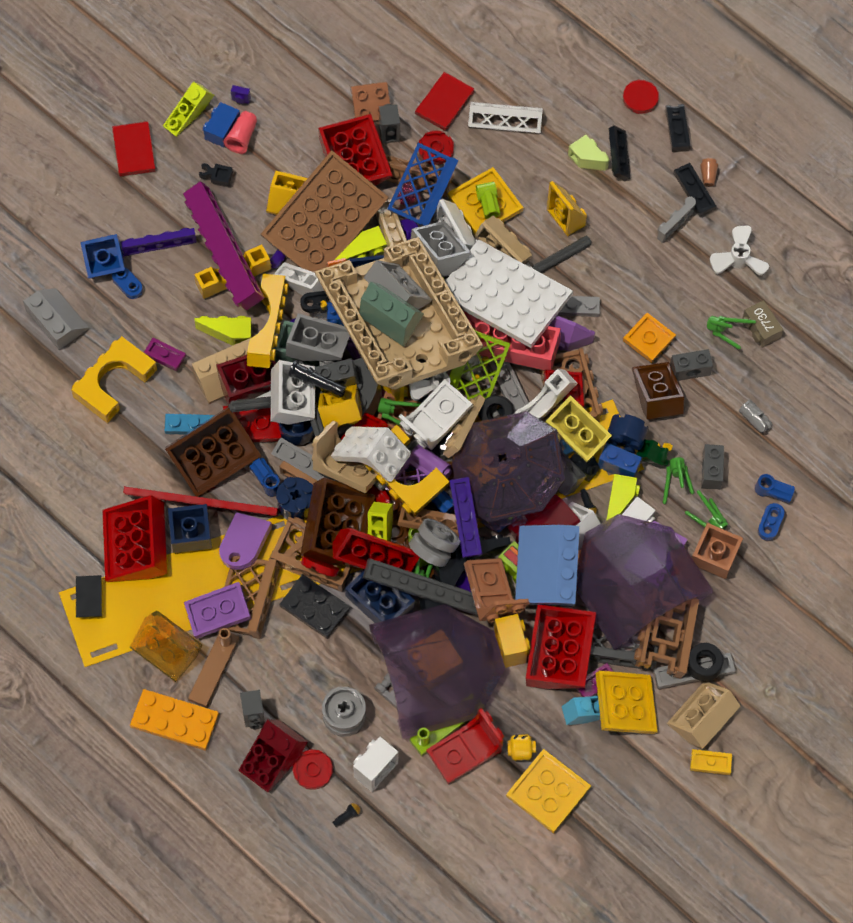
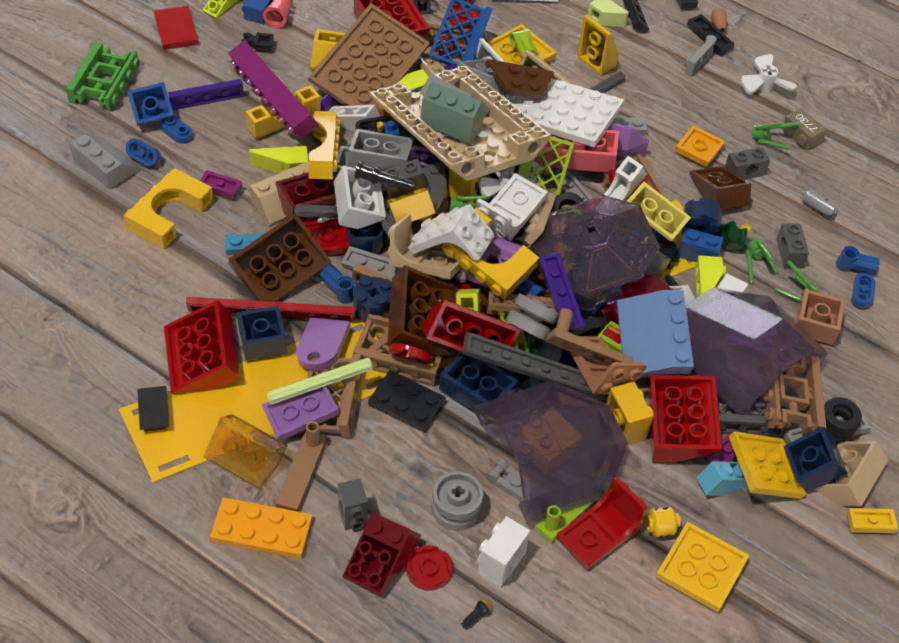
camera: 10 degrees left, 15 degrees down
(45, 205) = (91, 69): none -> bright green fence
(93, 312) = (144, 154): none -> blue plate
(236, 586) = (319, 380): none -> yellowish green axle
(455, 567) = (562, 338): none -> medium nougat piece
(470, 263) = (520, 79): none -> reddish brown wing
(670, 701) = (815, 459): none -> dark blue brick

